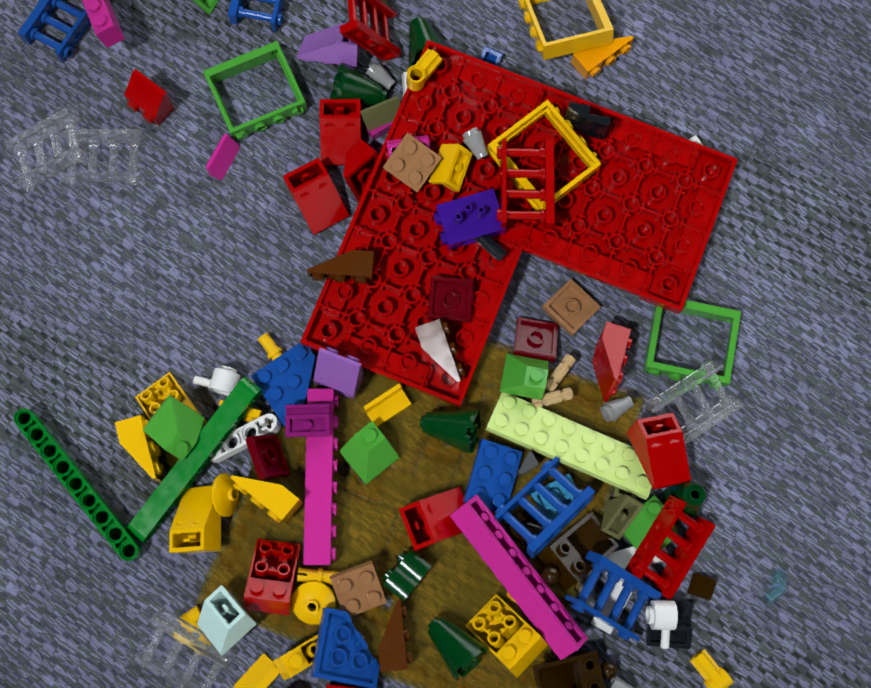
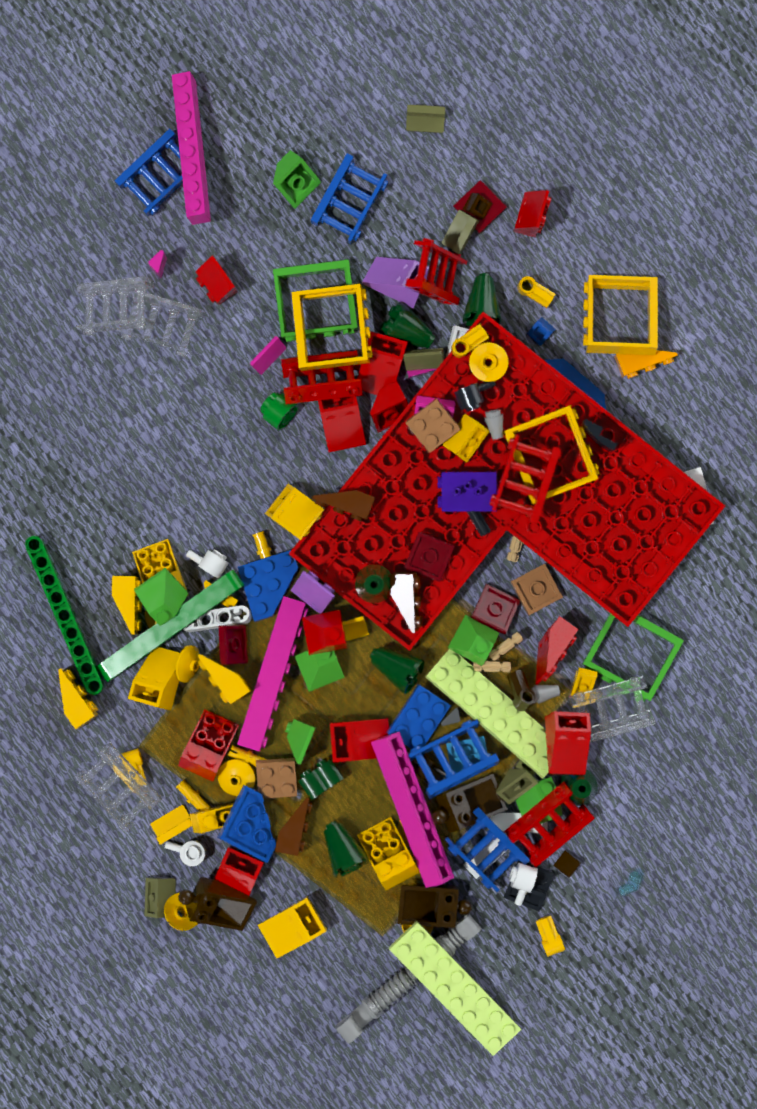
camera: 20 degrees right, 10 degrees up
(83, 97) = (158, 263): none -> dark pink slope
(110, 574) = (75, 704): none -> yellow slope
(224, 620) = (159, 769): light aqua slope -> none
(249, 206) = (277, 412): none -> green piece
(265, 74) = (297, 298): none -> yellow window
(271, 639) = (192, 796): none -> yellow pin
(283, 159) = (320, 391): none -> red fence
(294, 299) = (294, 511): none -> yellow slope
(307, 420) = (275, 625): magenta plate -> none
(363, 412) = (324, 632): none -> red slope
(370, 534) = (299, 738): none -> bright green slope
(380, 76) = (433, 319): light grey cone -> none
(400, 352) = (366, 576): none -> cone
(441, 122) = (471, 397): none -> black piece
(453, 75) = (499, 362): none -> yellow dish
(474, 21) = (537, 293): none -> yellow piece
(534, 271) = (515, 547): none -> tan axle
(597, 416) = (521, 690): none -> dark brown piece
(652, 384) = (583, 680): none -> yellow slope

